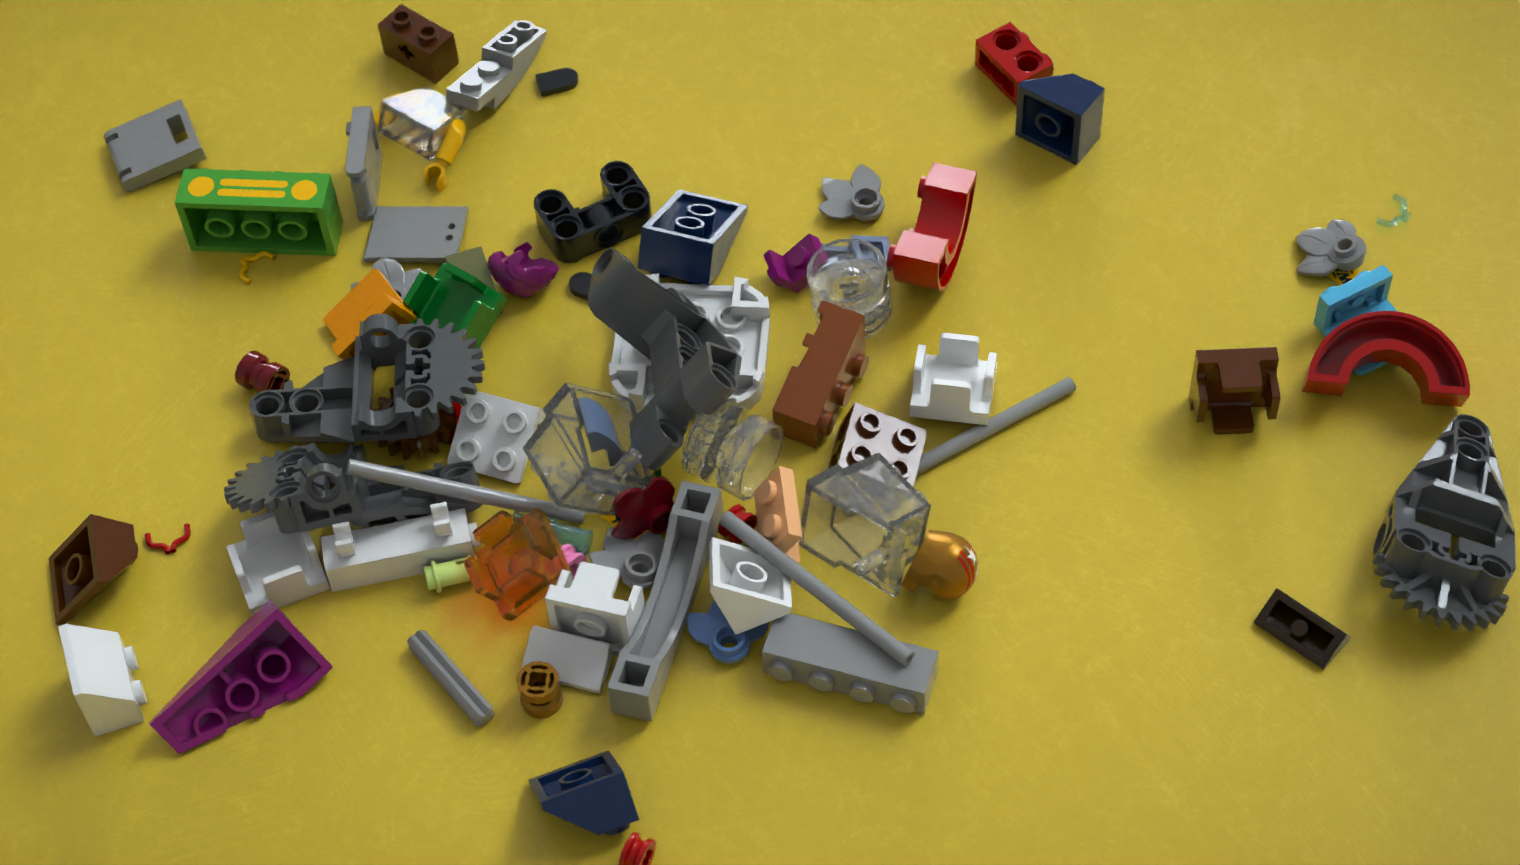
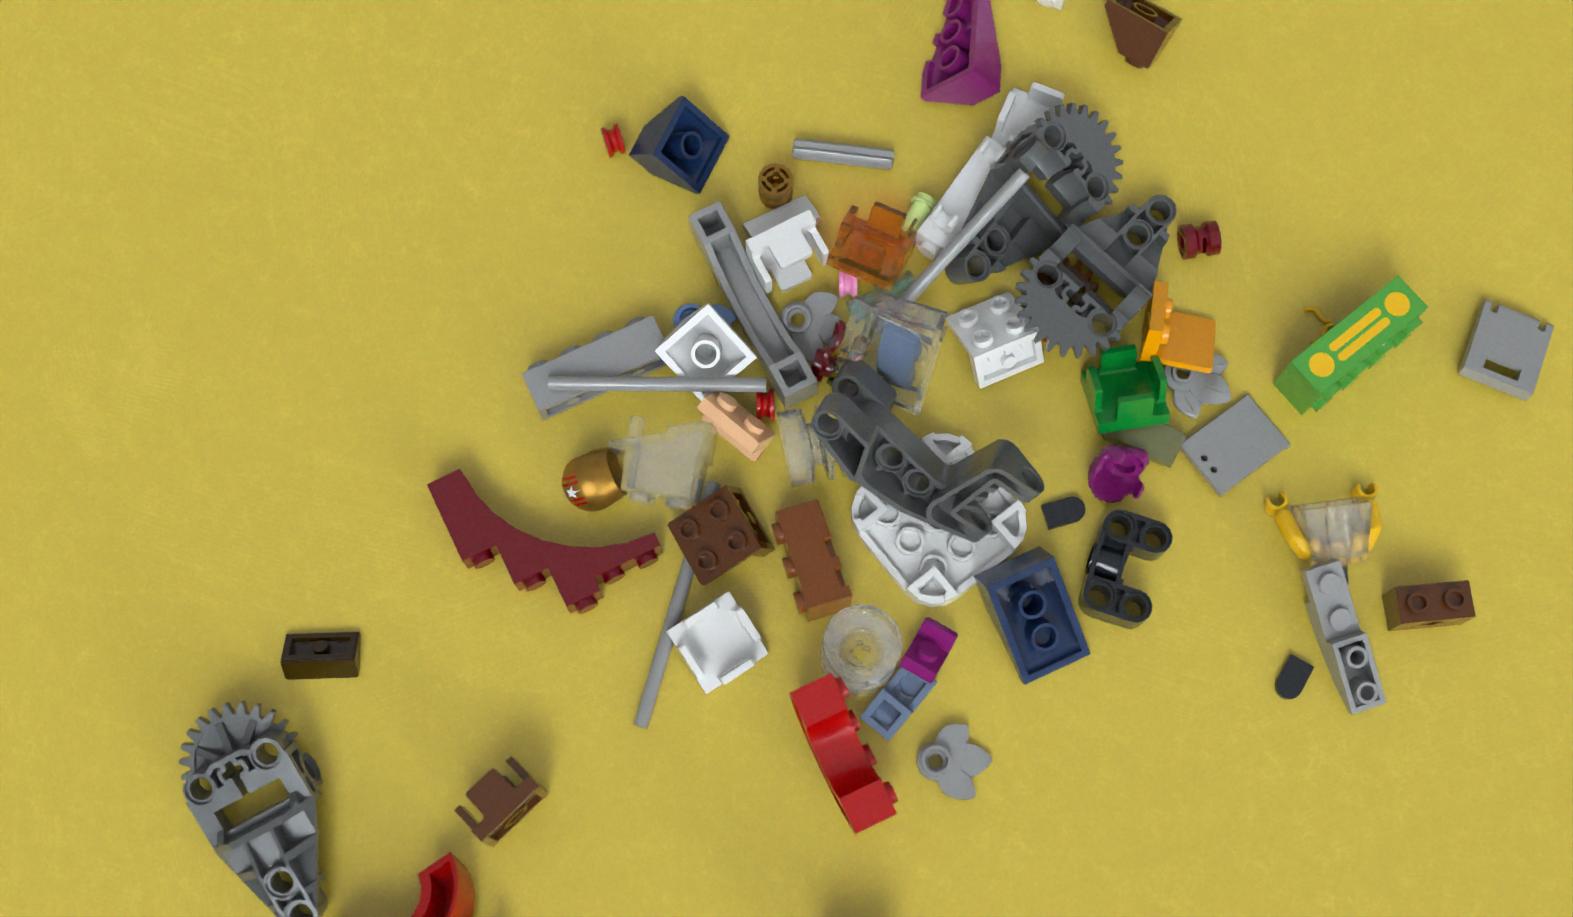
camera: 135 degrees right, 20 degrees up
(165, 547) = (1121, 87): red piece -> none
(364, 161) = (1328, 450): light grey container -> none
(1052, 554) = (529, 560): none -> dark red arch

